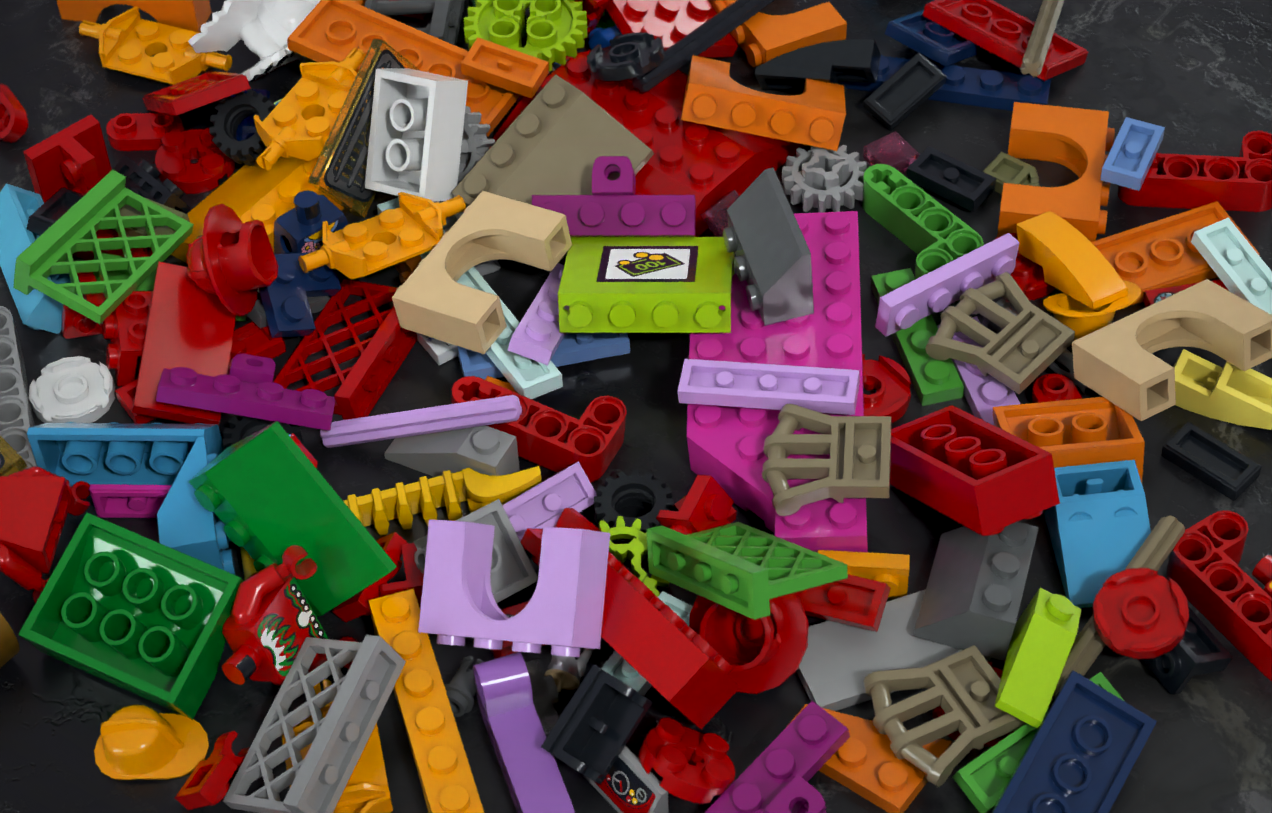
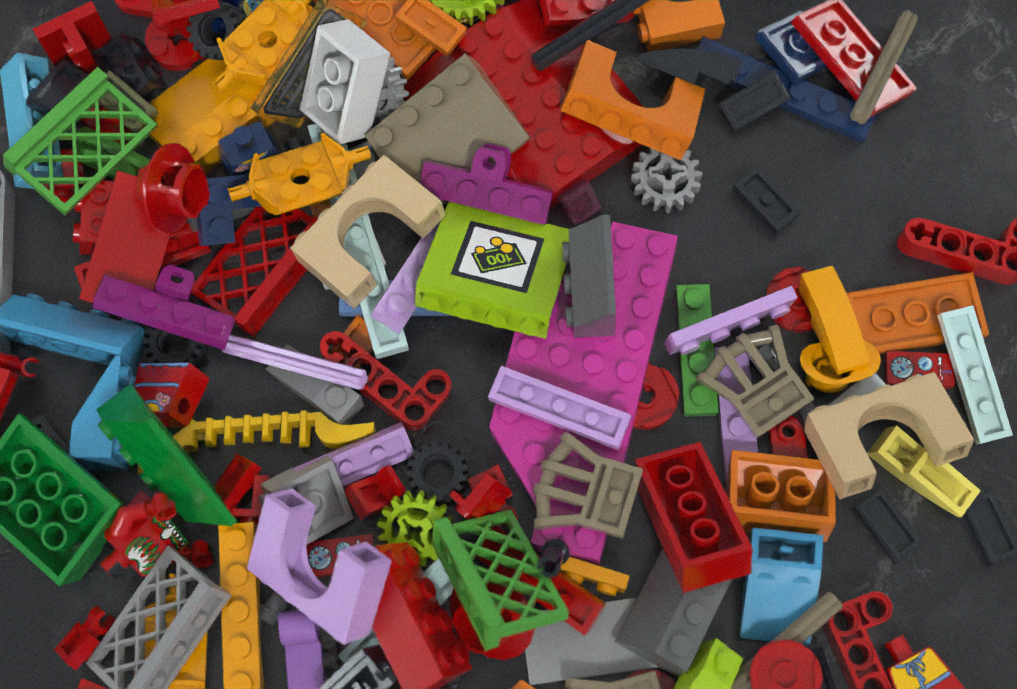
camera: 10 degrees right, 25 degrees up
(72, 391) = (44, 253): white tile -> none
(128, 500) = (71, 370): dark pink slope -> none
(149, 744) = (41, 601): light orange piece -> none
(626, 57) = (531, 35): black tile -> none
(821, 533) = (554, 554): none -> black pin
(891, 151) = (726, 160): clear pink plate -> none
(916, 219) = (725, 243): bright green beam -> none
(1011, 170) = (818, 210): olive tile -> none
(1066, 137) = (881, 187): orange arch -> none
(1132, 153) = (915, 225): medium blue plate -> none

